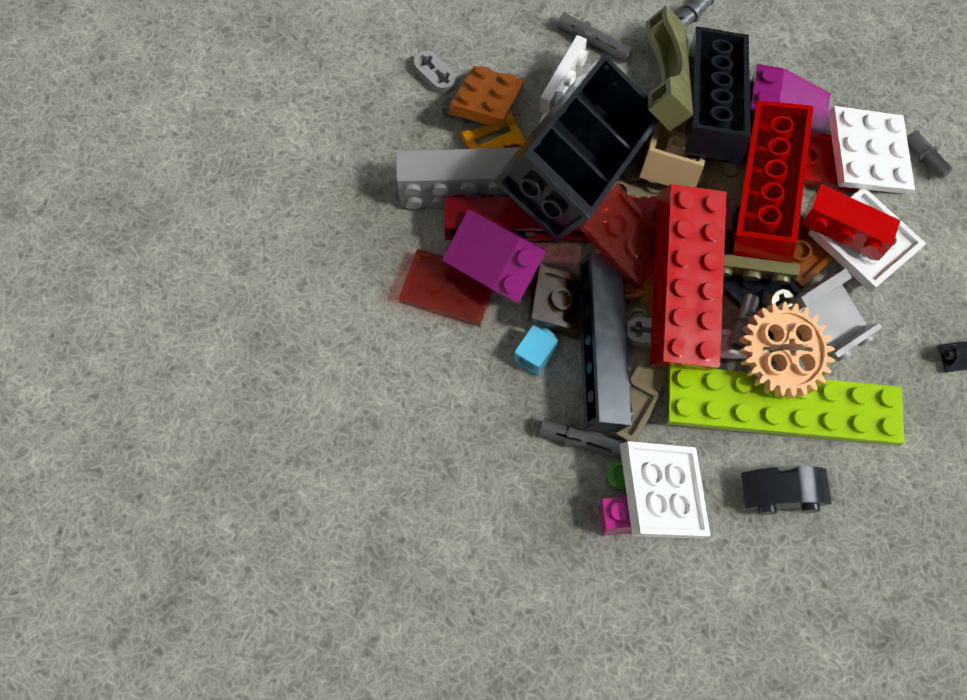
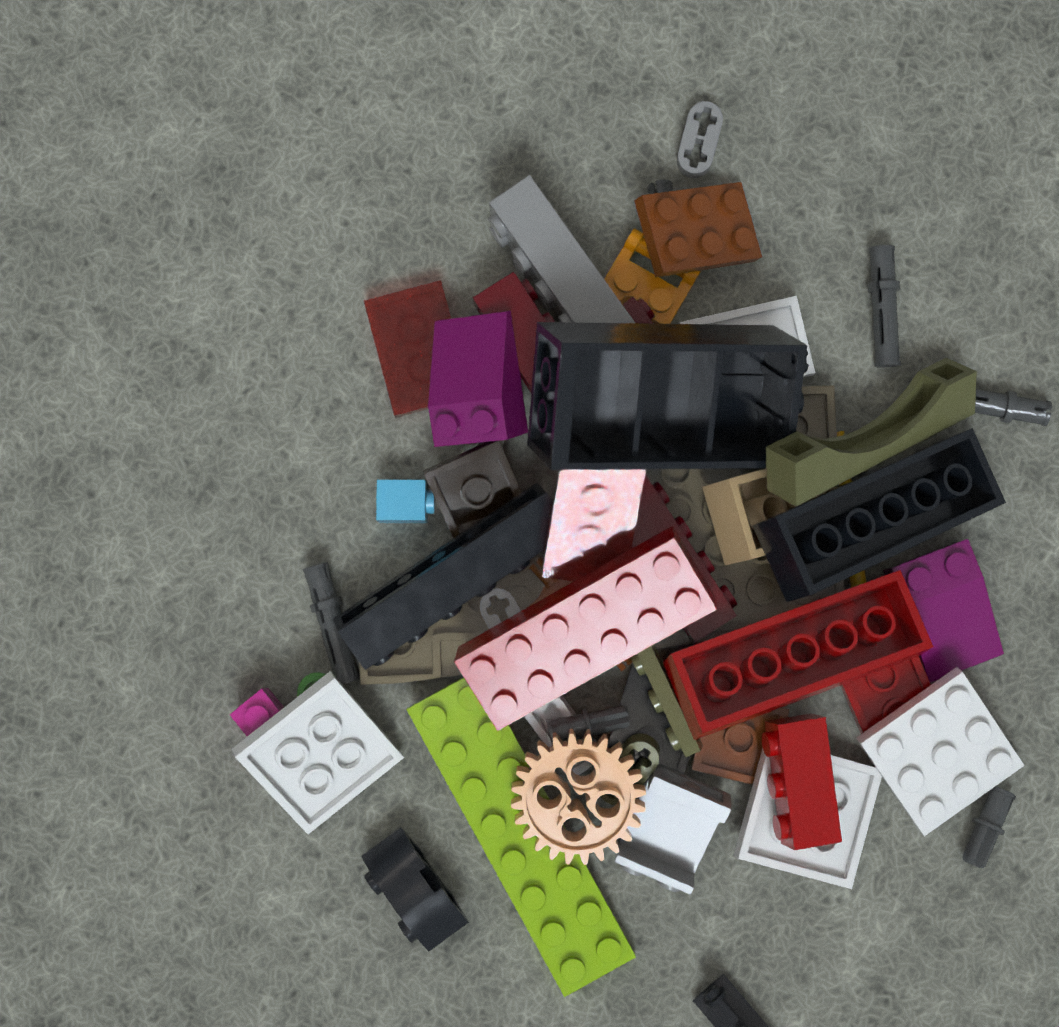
camera: 60 degrees right, 15 degrees up
(564, 74) = (788, 305): white plate -> none

